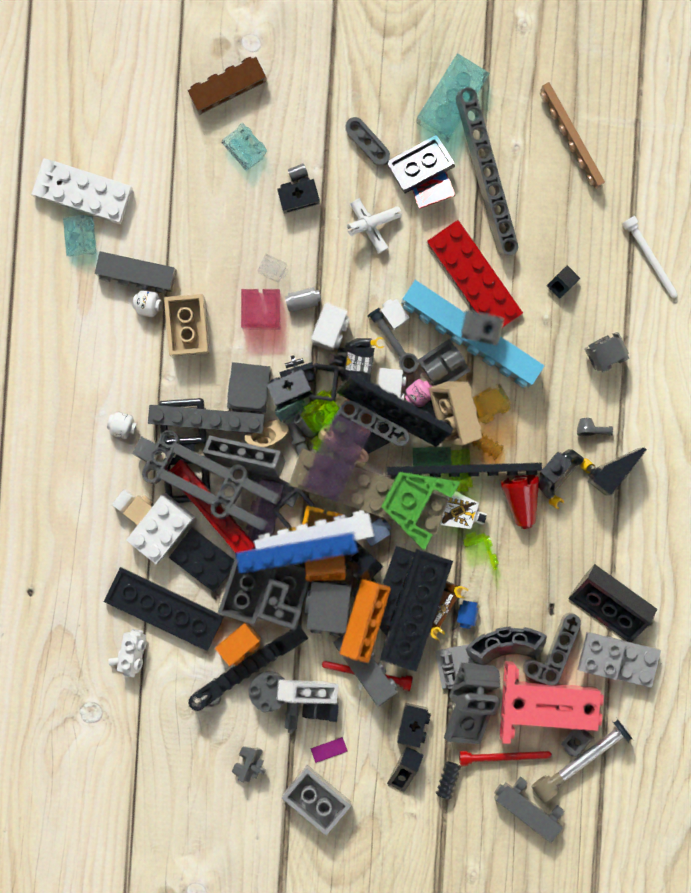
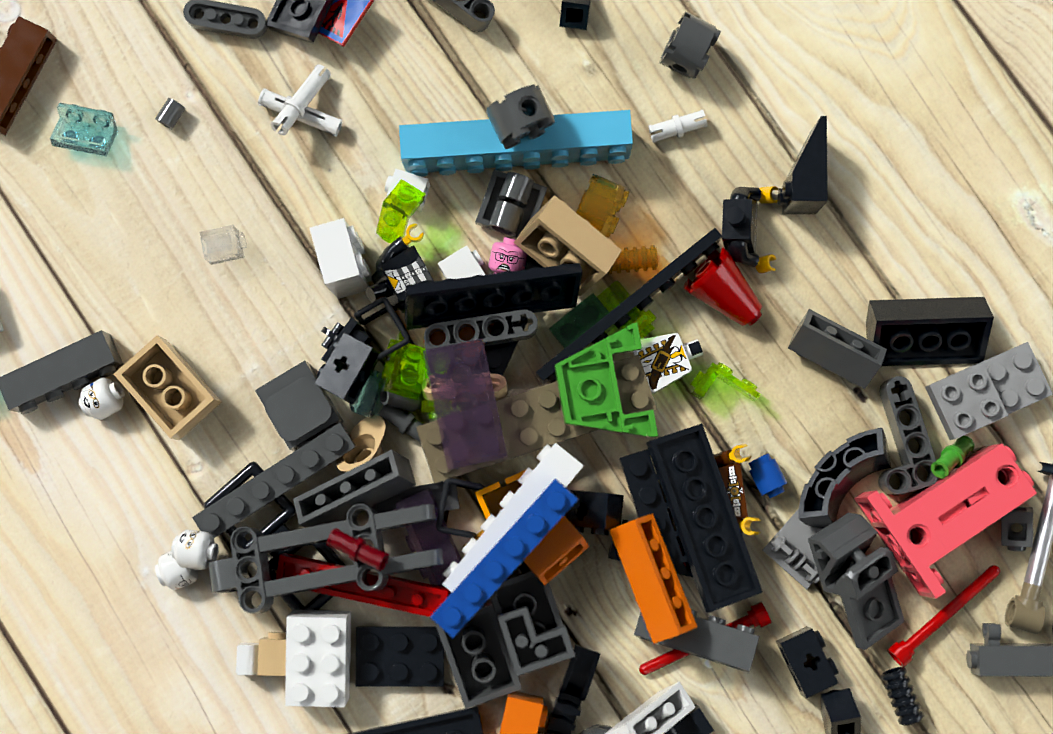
camera: 40 degrees left, 5 degrees down
(138, 423) = (194, 549): none -> white head
(224, 490) = (357, 549): none -> dark red pin
(261, 310) = (244, 303): clear pink piece -> none
(302, 299) = (286, 254): light grey head -> none
(308, 198) = (190, 153): black brick -> none
(327, 607) = (595, 597): dark grey brick -> none
(377, 317) = (447, 227): dark grey piece -> none
(380, 324) = (397, 210): none -> clear neon green bracket
(380, 529) = (588, 455): sand blue brick -> none
(473, 273) = (457, 73): red plate -> none
(556, 576) = (837, 349): none -> dark grey brick
(567, 390) = (677, 126): none -> white pin
(572, 679) = (952, 456): none -> bright green pin
(587, 428) = (735, 151): dark grey bar -> none

